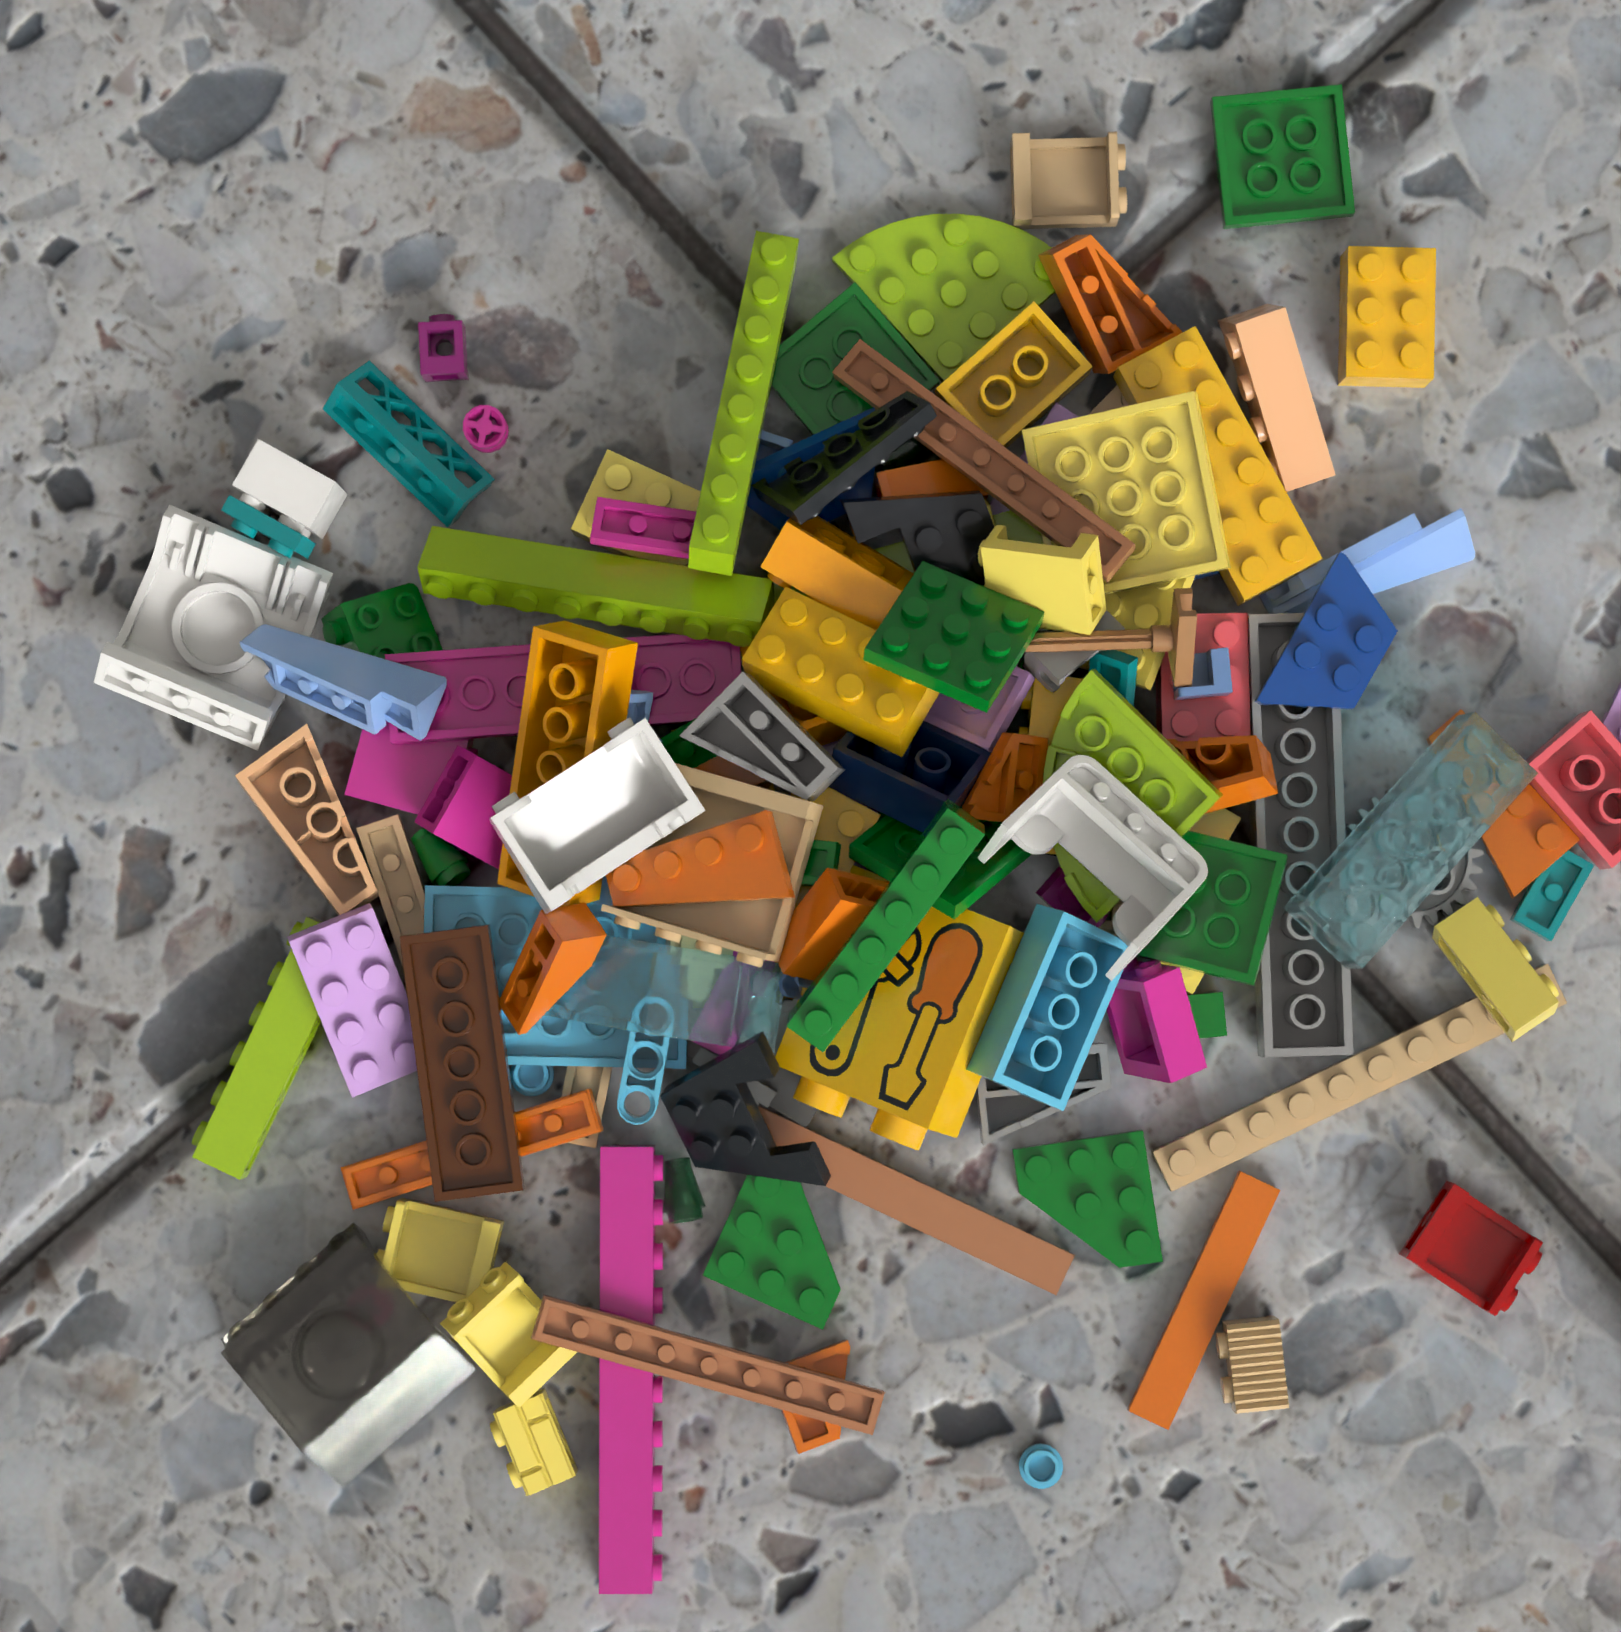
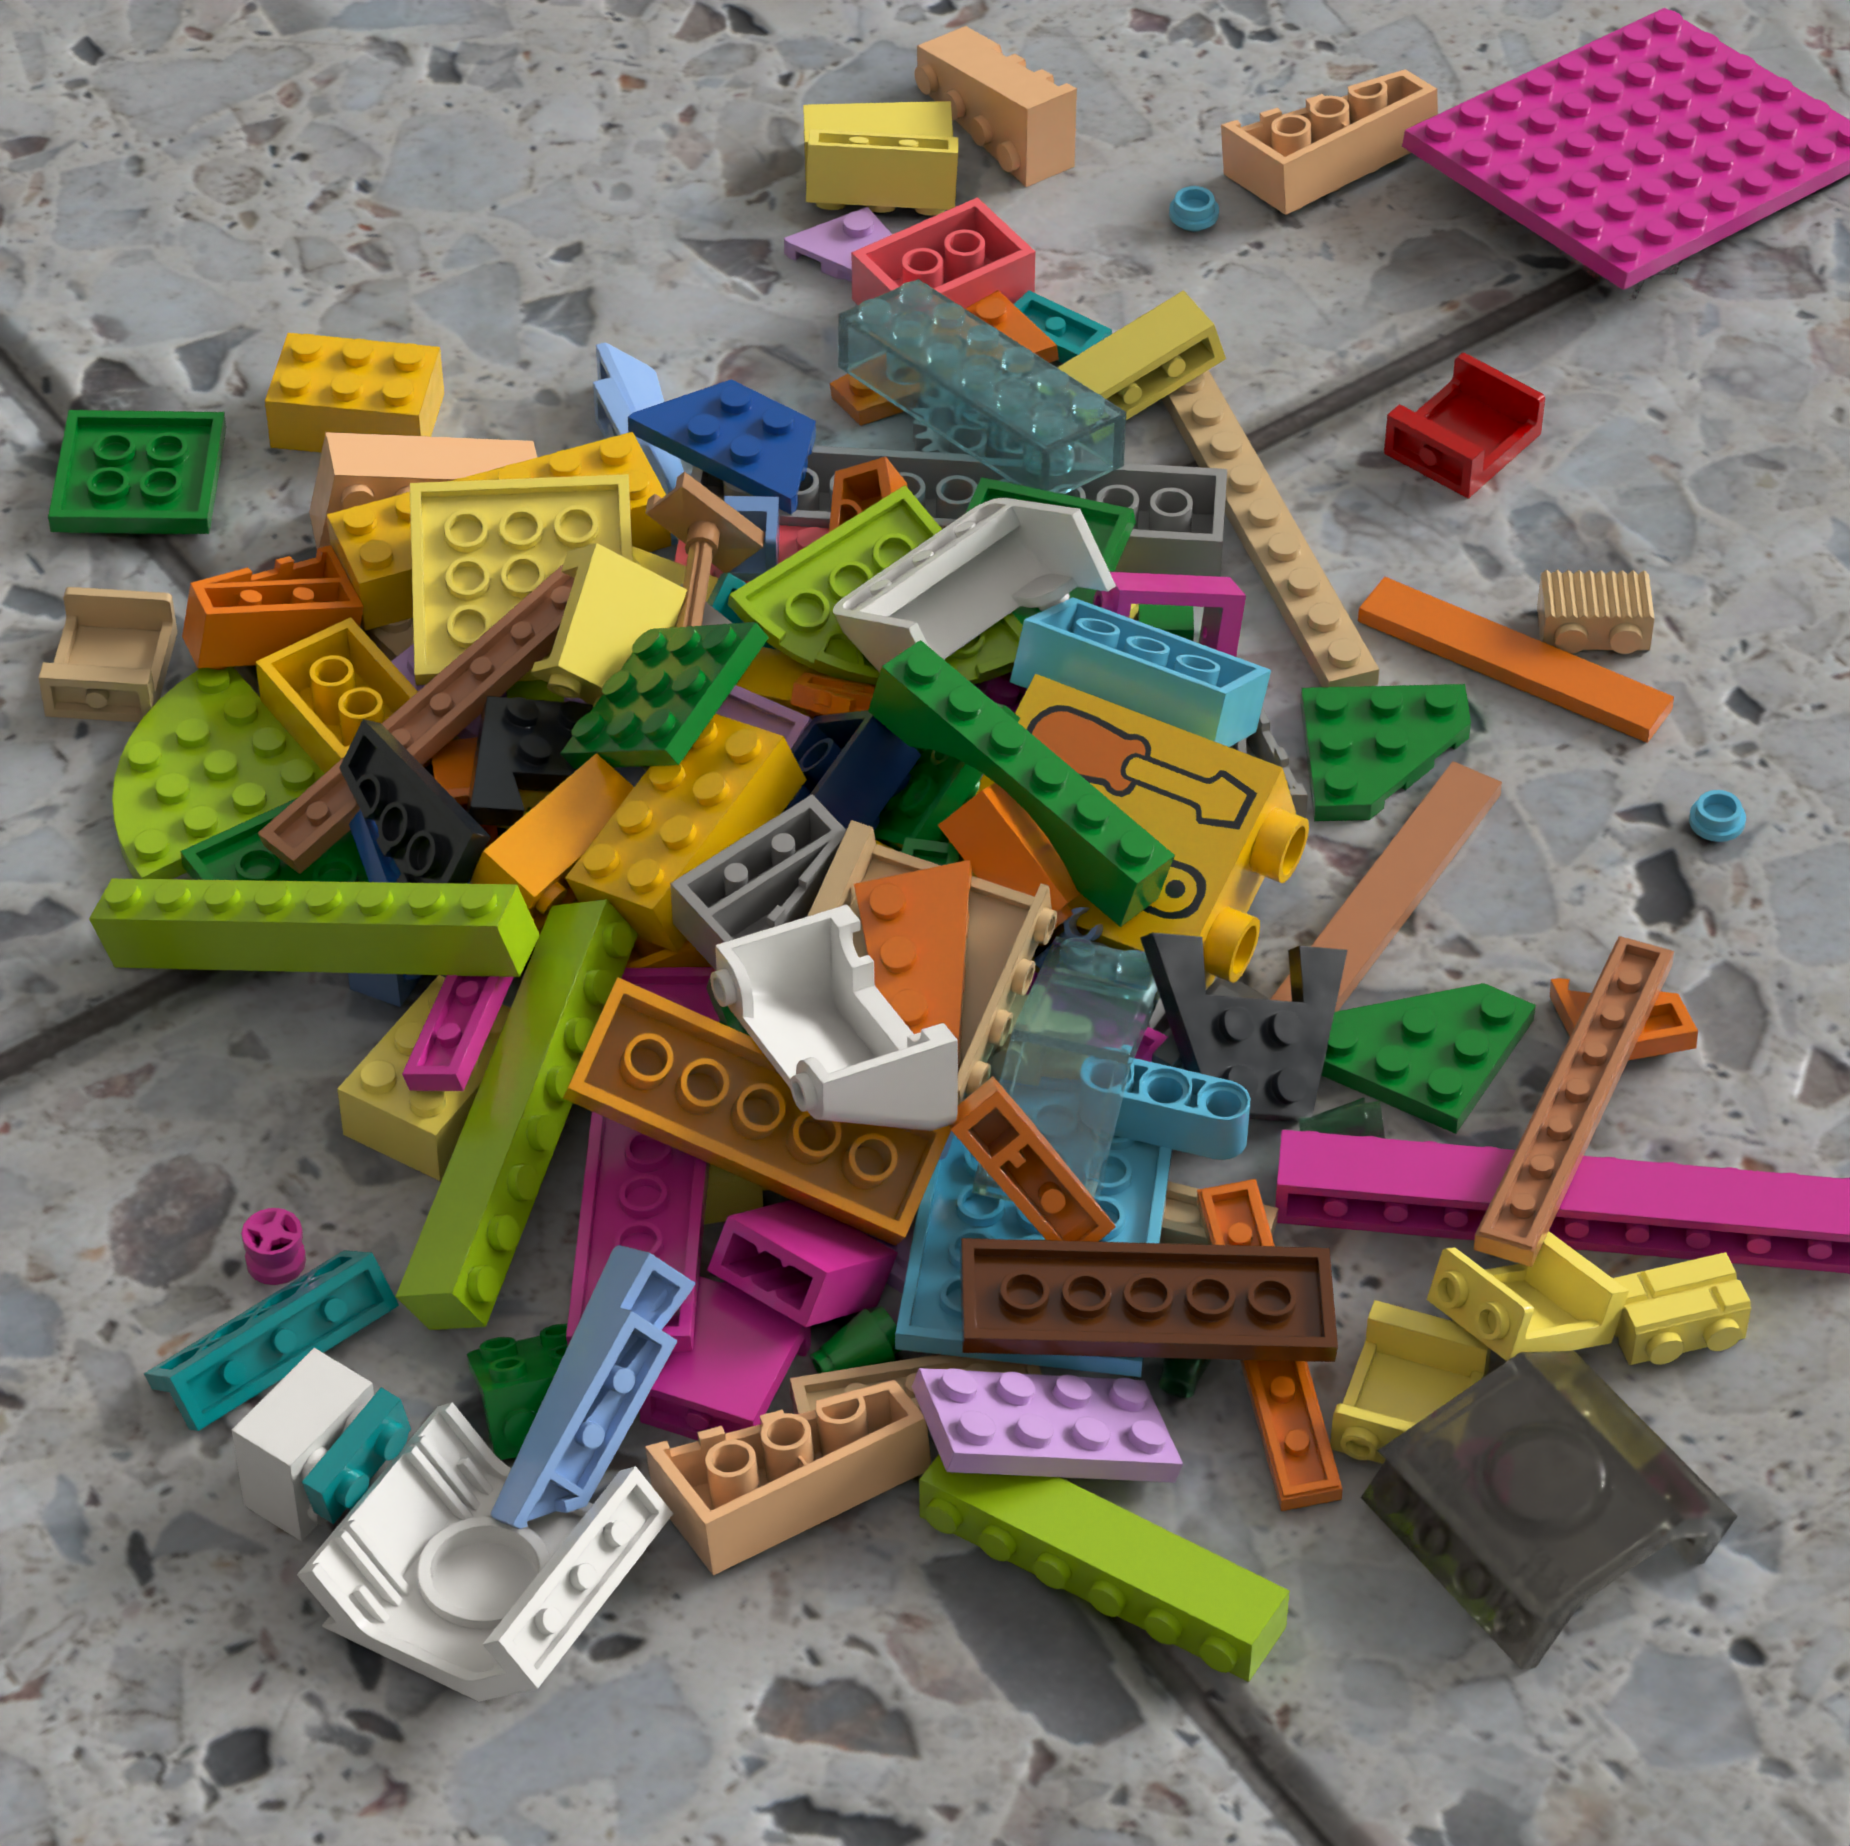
camera: 85 degrees left, 40 degrees down
(438, 330) = (153, 1275): magenta brick -> none

